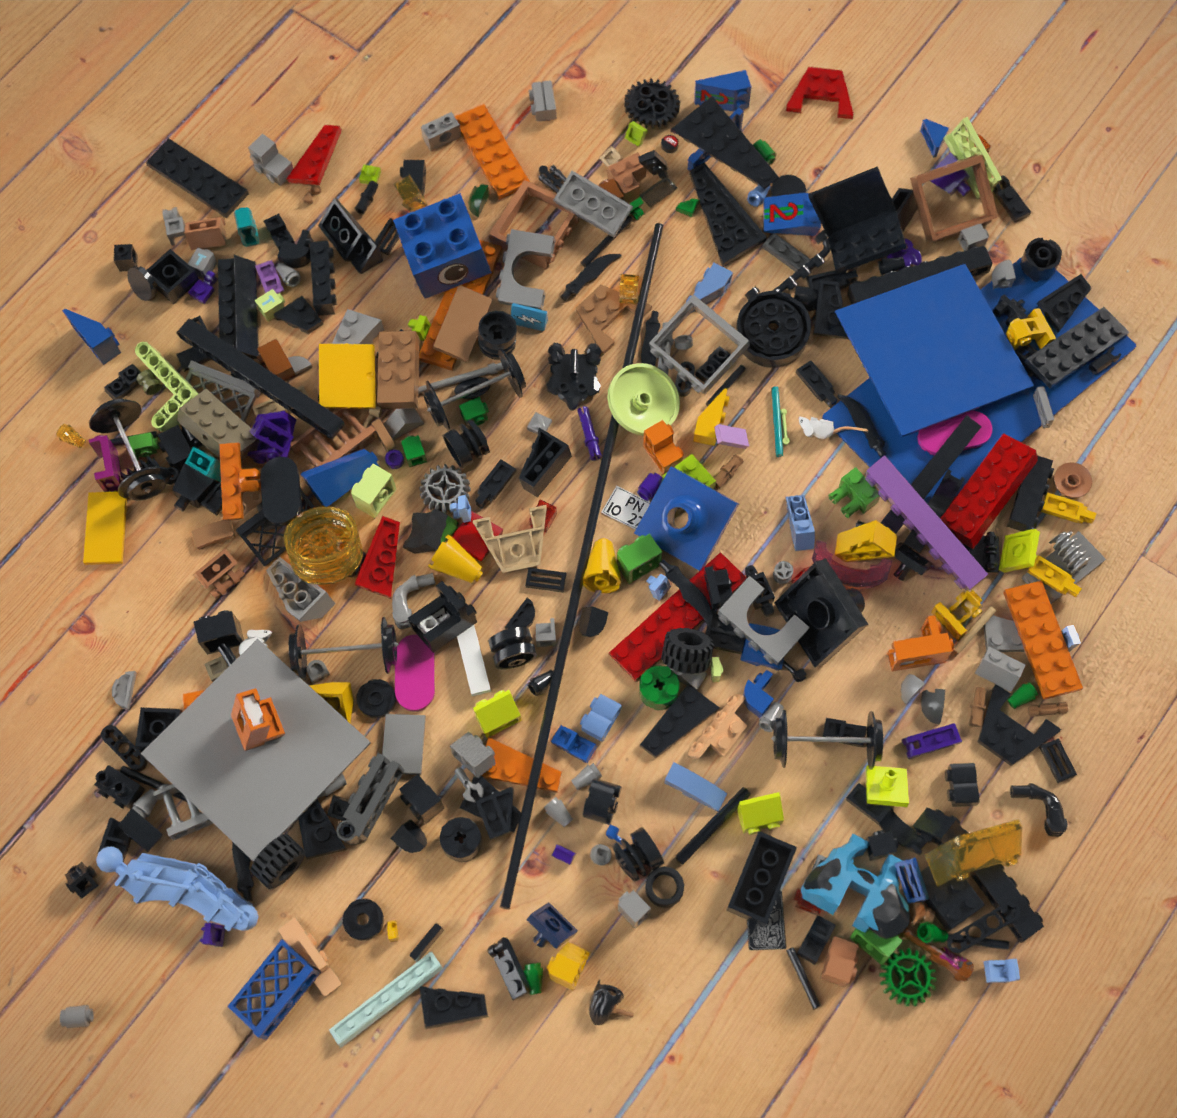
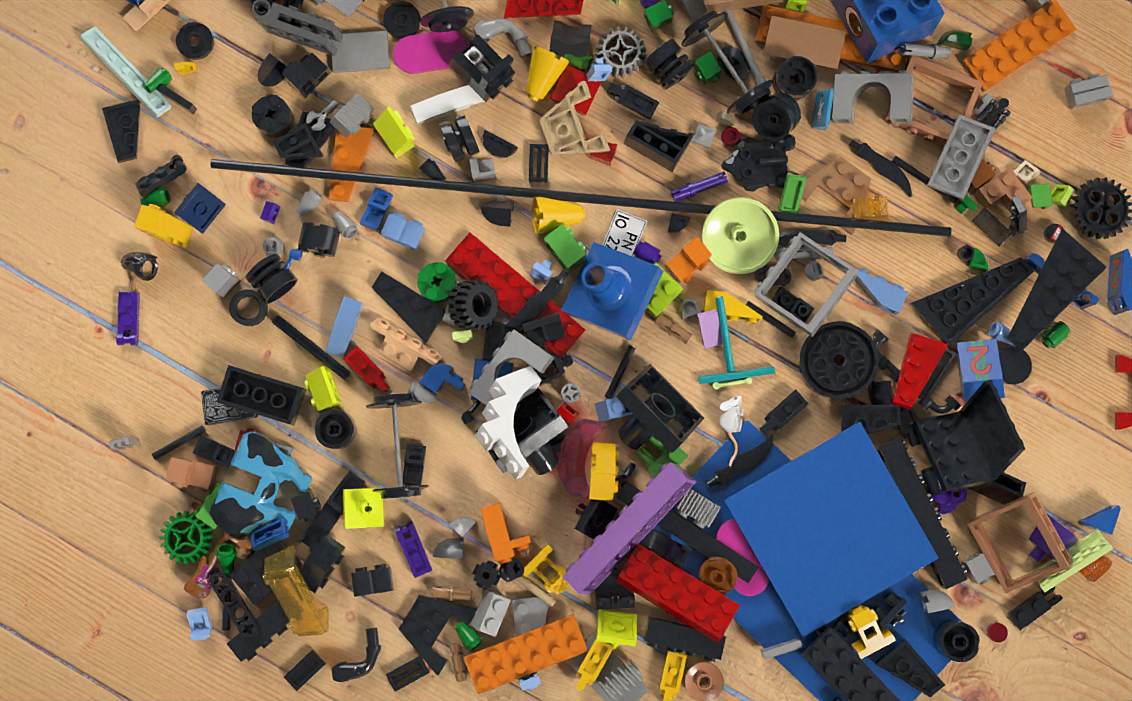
camera: 80 degrees right, 15 degrees up
(401, 960) = (158, 78): none -> green cone
(487, 220) = (931, 51): none -> light grey pin
(525, 402) = (725, 118): none -> dark tan tile
(533, 352) = (776, 116): none -> black wheel
(541, 182) = (982, 104): none -> light grey tile
(543, 401) = (730, 136): none -> dark red tile
(607, 351) = (792, 193): none -> bright green tile
(622, 457) = (677, 223): none -> black tile
(635, 145) = (1040, 195): none -> bright green panel
(662, 1022) = (128, 317): none -> dark purple plate
(680, 215) = (967, 254): none -> black hinge
(708, 456) = (689, 308): none -> light grey tile
(738, 423) = (725, 333): none -> teal bar
(741, 769) = (366, 369): none -> red hinge
(766, 526) = (620, 371): none -> black bar
(785, 263) = (917, 366): none -> red wing
(800, 794) = (347, 429): none -> black brick
(801, 1032) = (123, 443): none -> light grey tile
(811, 488) = (656, 412): none -> black piece
(811, 619) = (499, 430): none -> white arch
(909, 461) = (698, 508): none -> light grey brick
(960, 641) = (509, 574): none -> black wheel
(961, 669) = (490, 567): none -> black brick
(971, 452) = (718, 574): none -> dark orange tile
(1031, 231) = (997, 632): none -> dark red tile
(1052, 865) = (304, 670): none -> black tile

